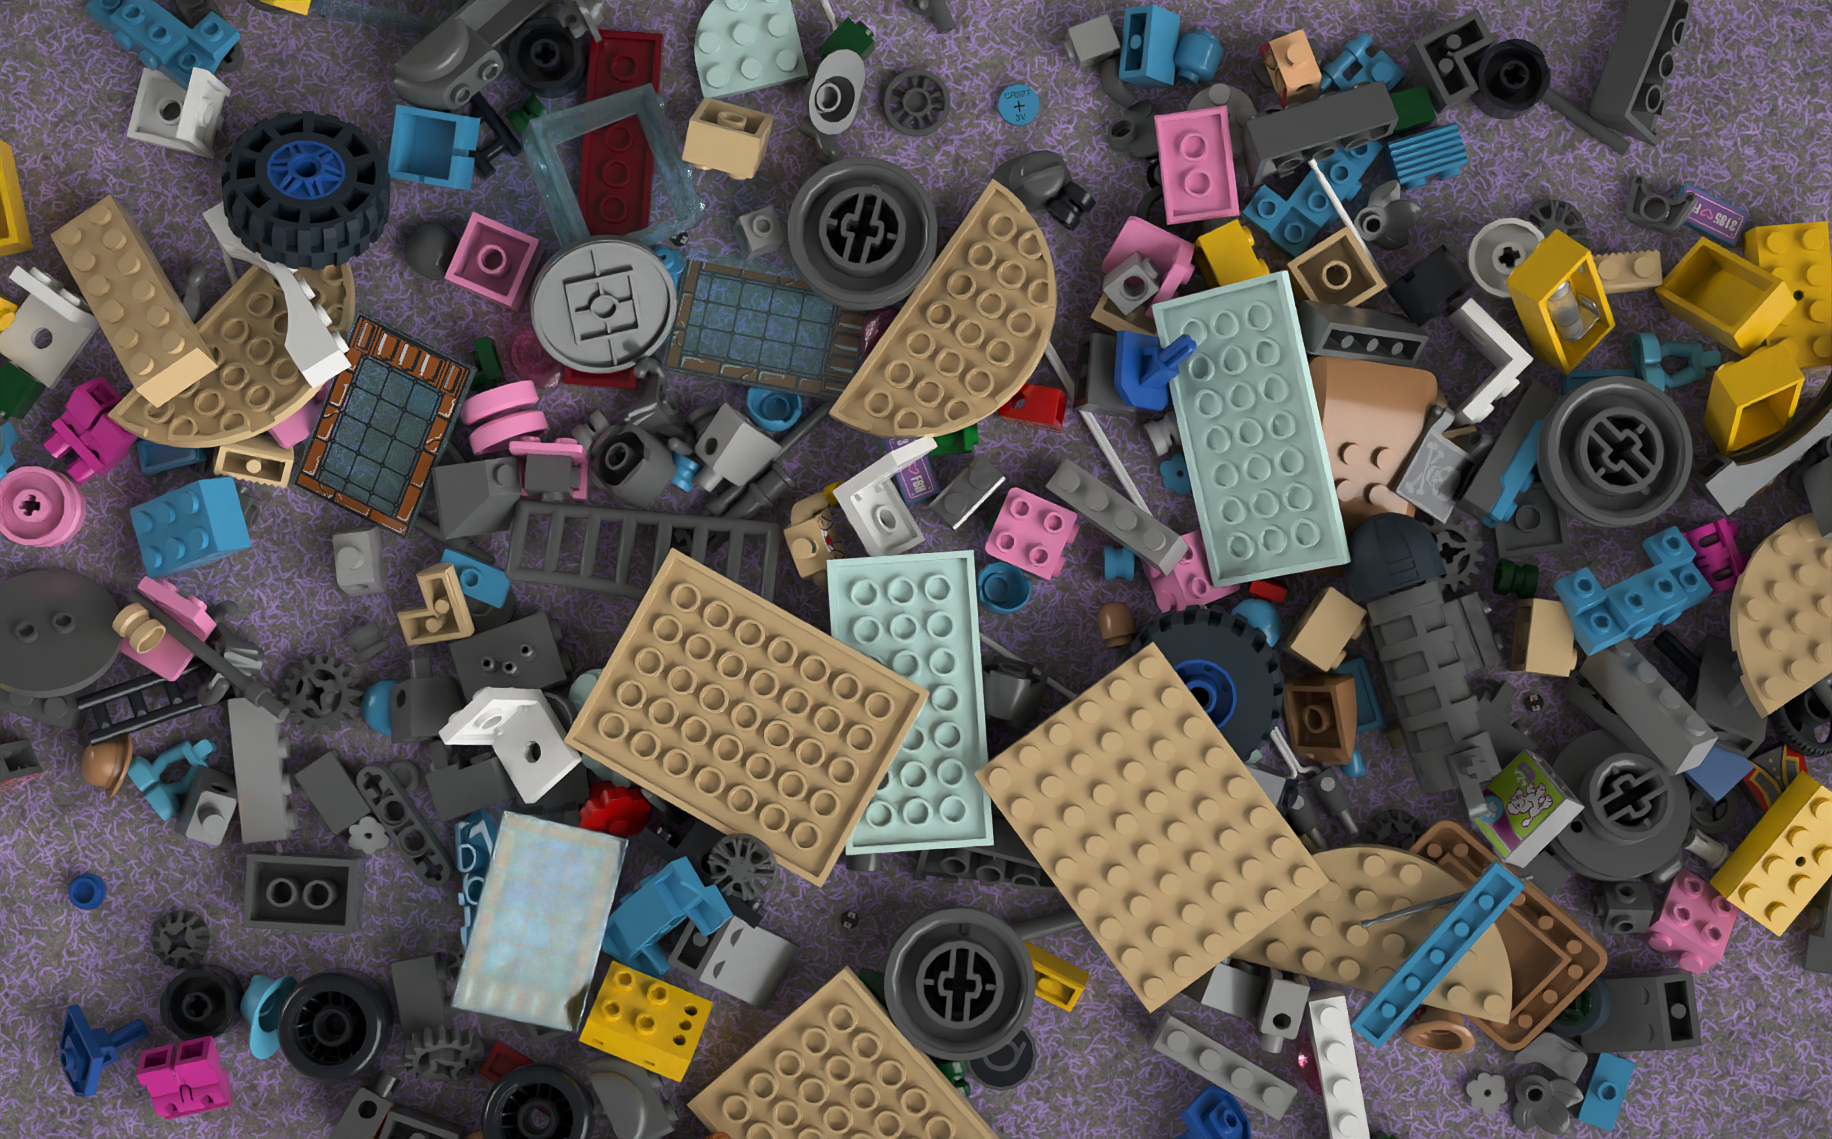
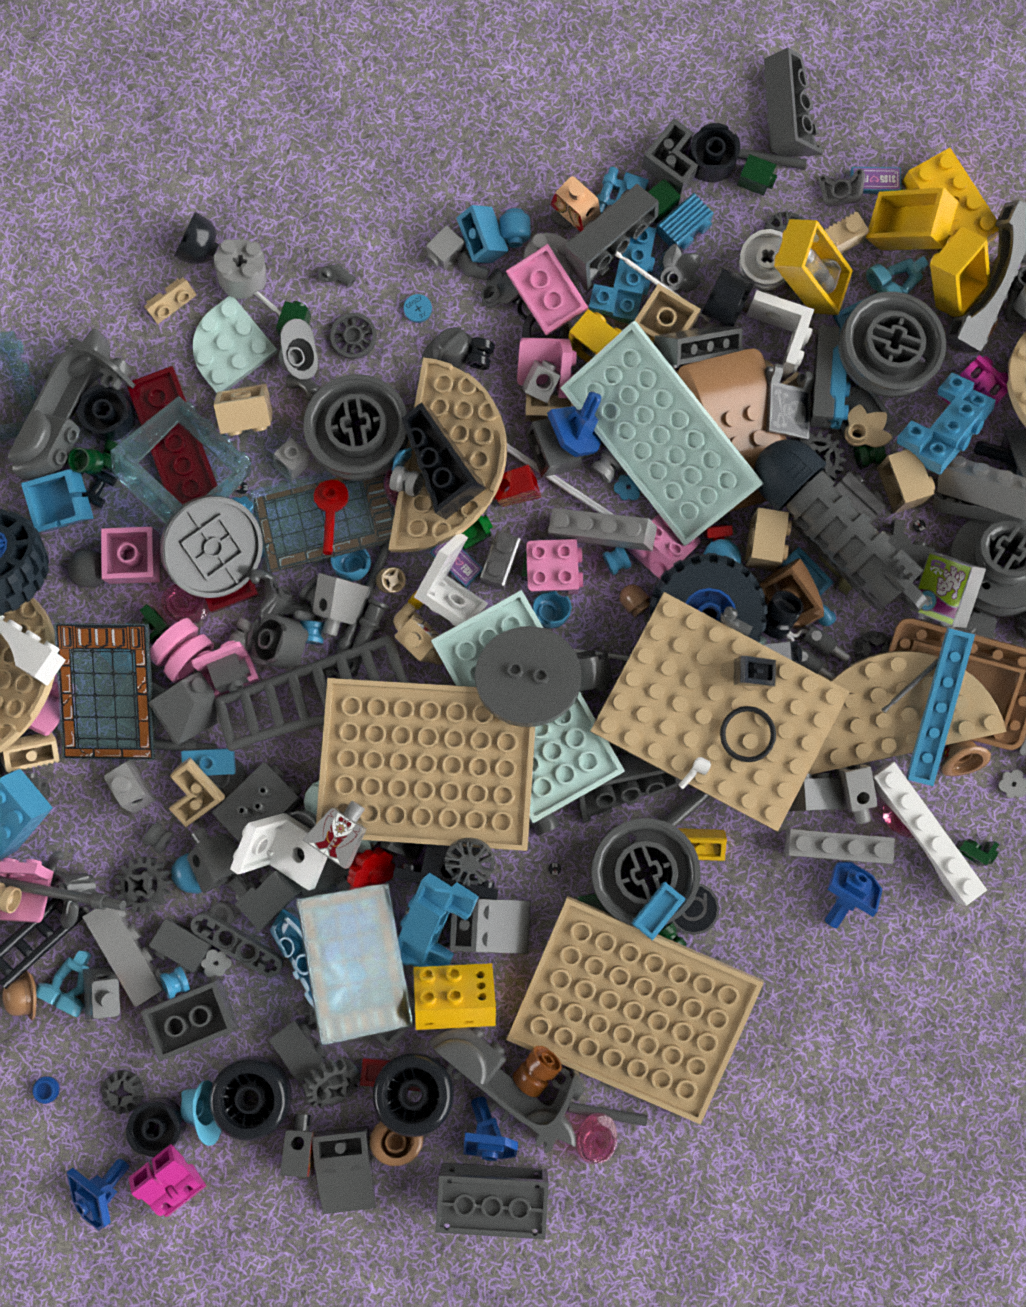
camera: 25 degrees left, 5 degrees down
(305, 837) = (174, 982): none -> dark azure wheel
(493, 112) = (85, 460): none -> dark green wheel
(593, 755) = (338, 834): none -> light grey torso
(787, 307) = (330, 498): none -> red piece
(820, 456) = (396, 580): none -> tan wheel
(892, 336) = (406, 481): none -> light grey wheel
(900, 302) = (401, 457): none -> dark azure plant
(927, 668) = (528, 676): none -> dark grey plate
(949, 343) = (444, 467): none -> black wedge
(951, 1040) = (658, 910): none -> dark azure tile
(1090, 885) = (700, 765): none -> white hand
(1206, 875) = (723, 734): none -> black tyre
(1218, 800) = (754, 671): none -> black slope
(1221, 715) = (729, 618): none -> dark grey arm
(1295, 737) = (782, 614): none -> black wheel
(1531, 543) = (869, 426): none -> tan plate
(1554, 136) = (757, 175): none -> dark green brick

